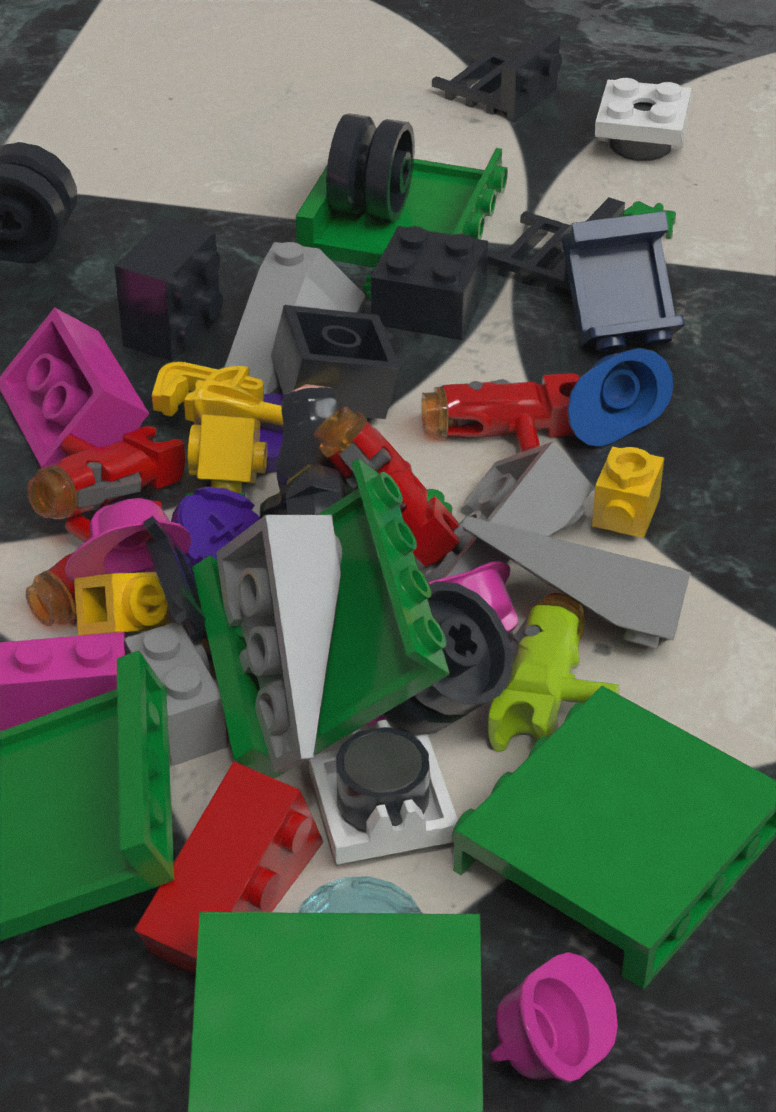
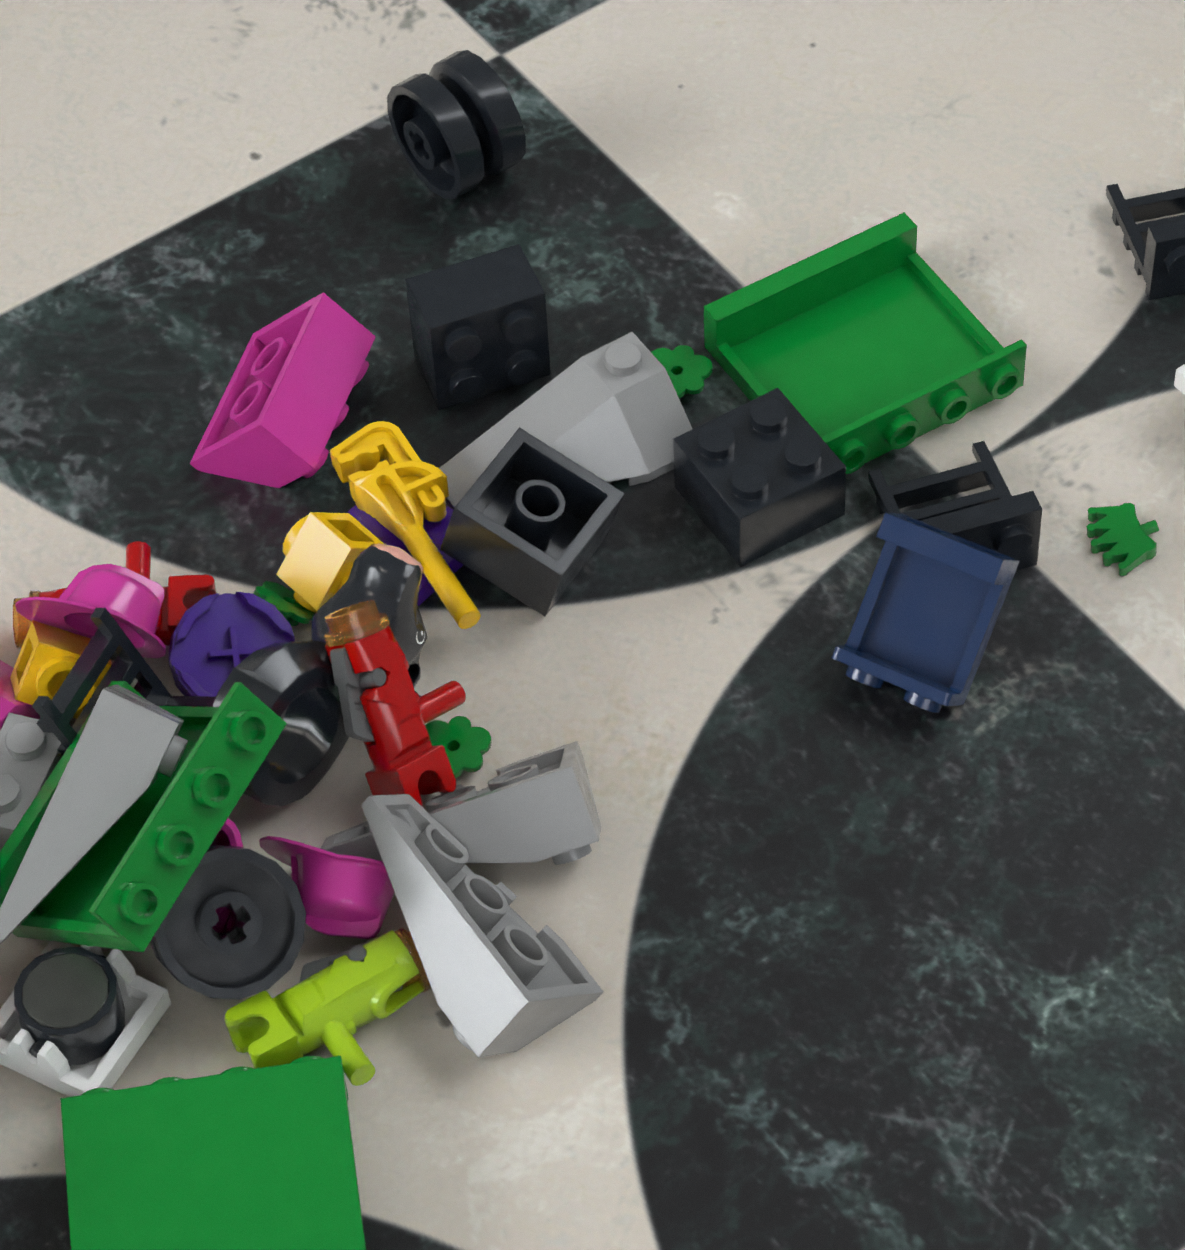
camera: 45 degrees right, 10 degrees up
(99, 474) = (201, 515): red piece -> none
(370, 167) = (838, 289): black wheel -> none
(500, 409) = (657, 685): red piece -> none
(619, 396) = (762, 748): blue piece -> none
(627, 491) = (635, 867): yellow brick -> none

